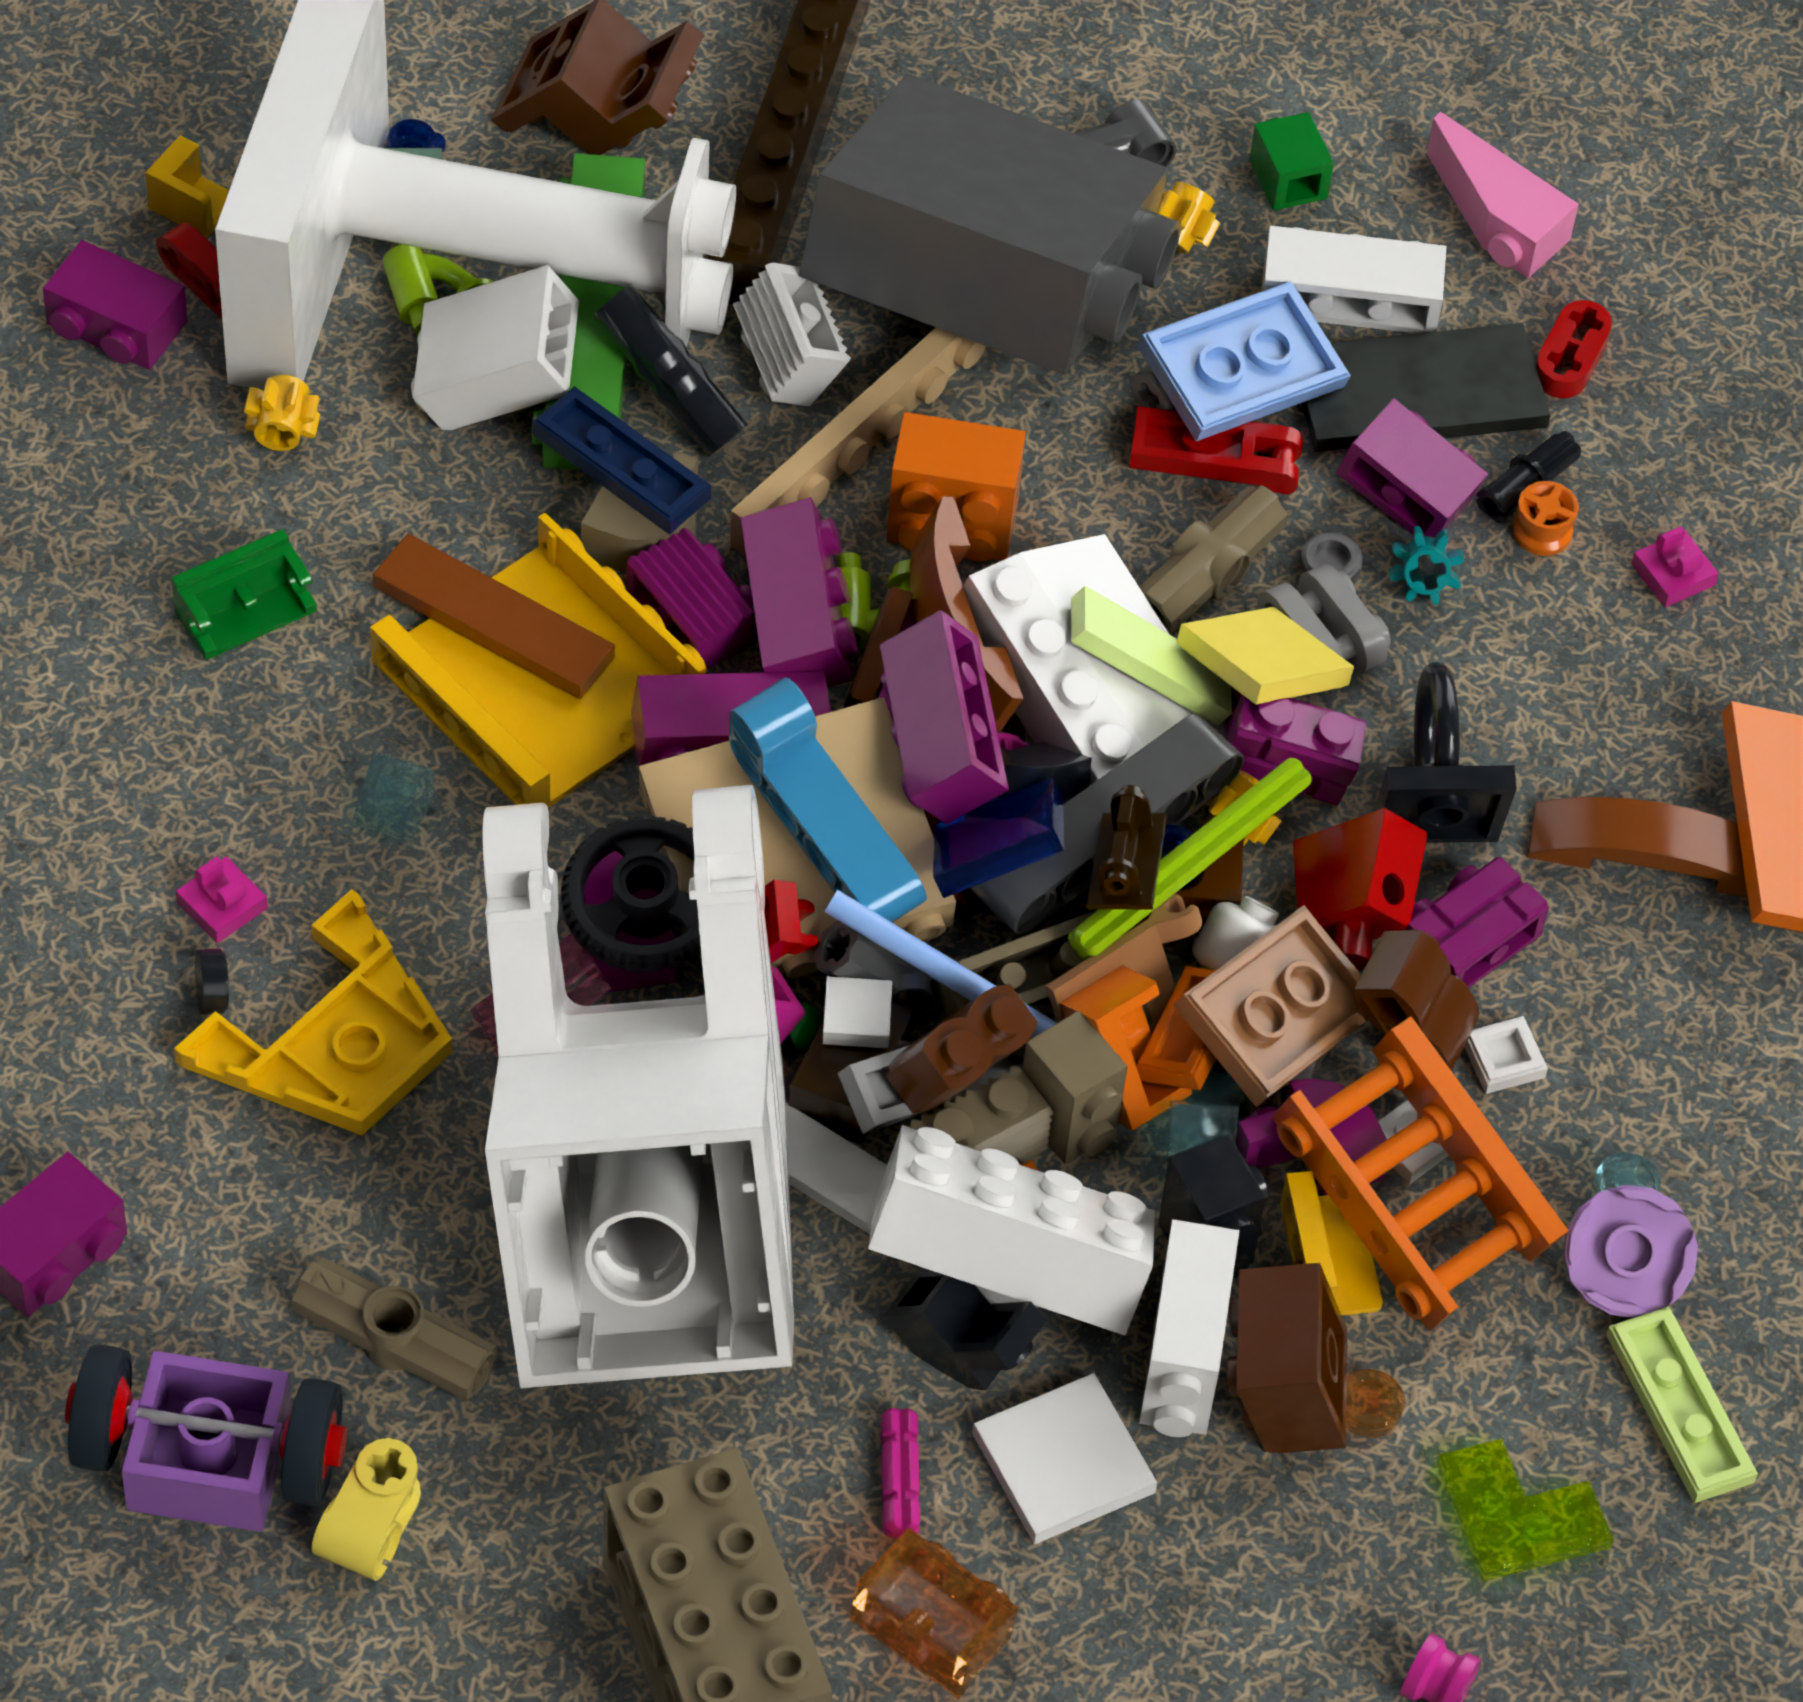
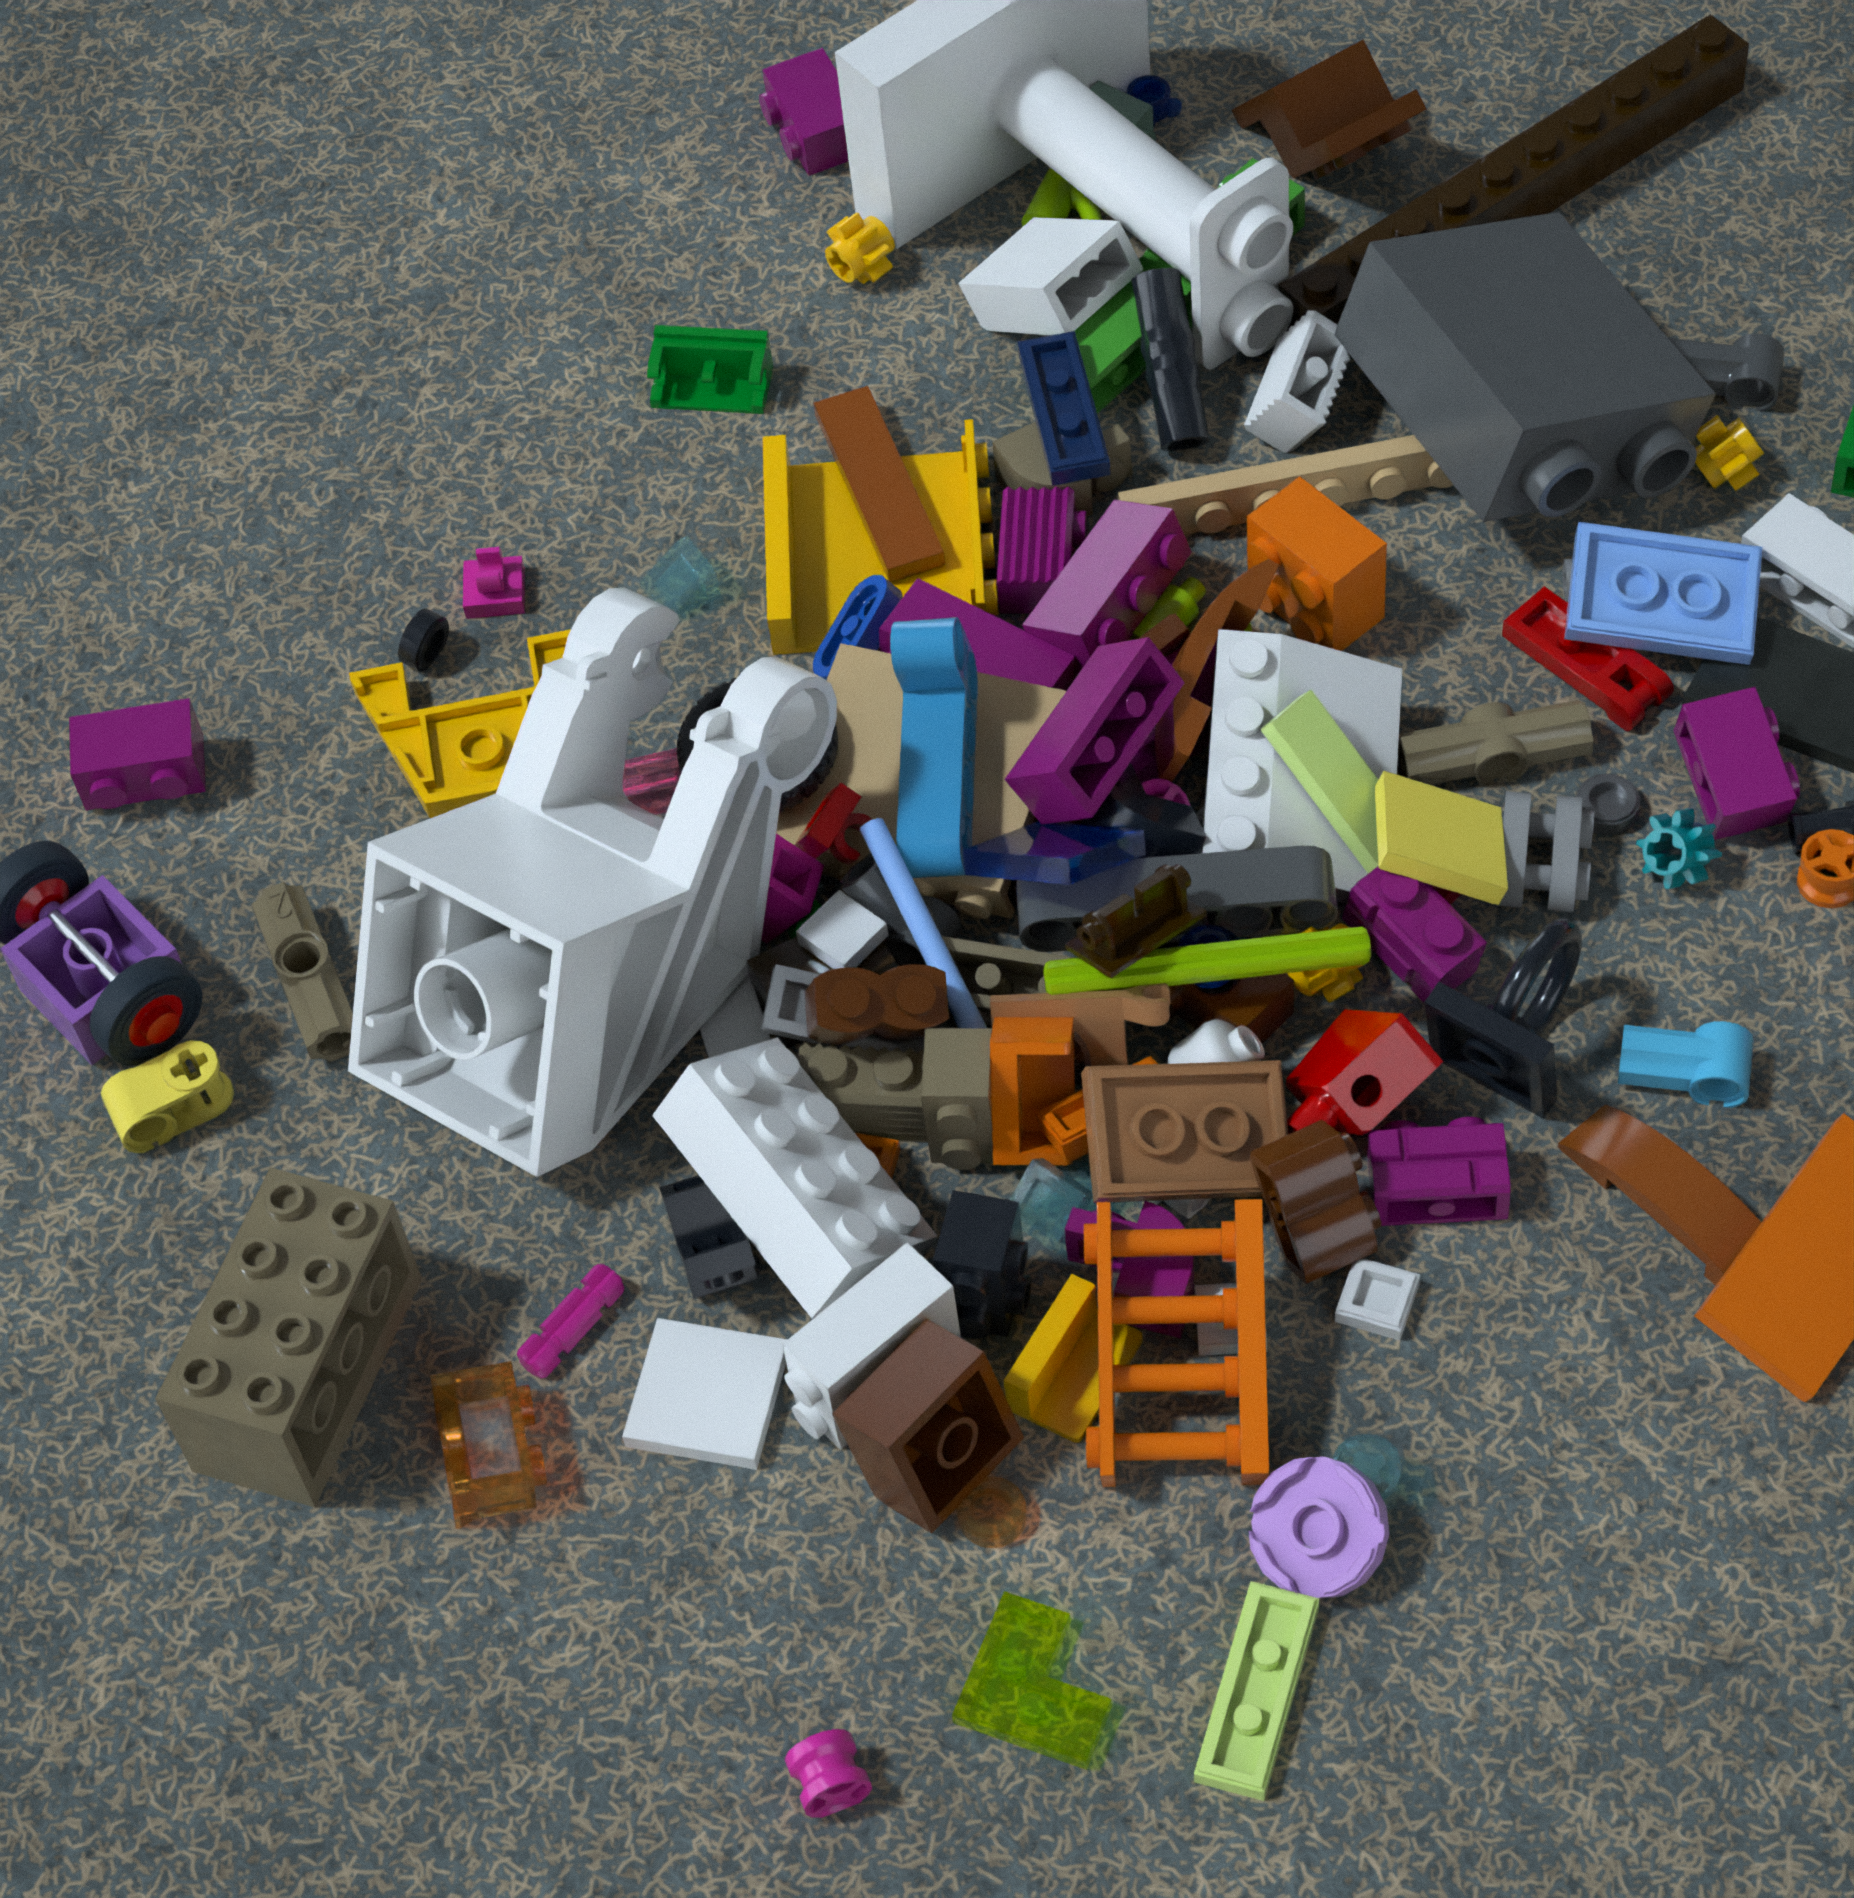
camera: 50 degrees right, 0 degrees up
(607, 759) = (858, 620): none -> blue plate
(1585, 724) = (1706, 1062): none -> medium azure piece

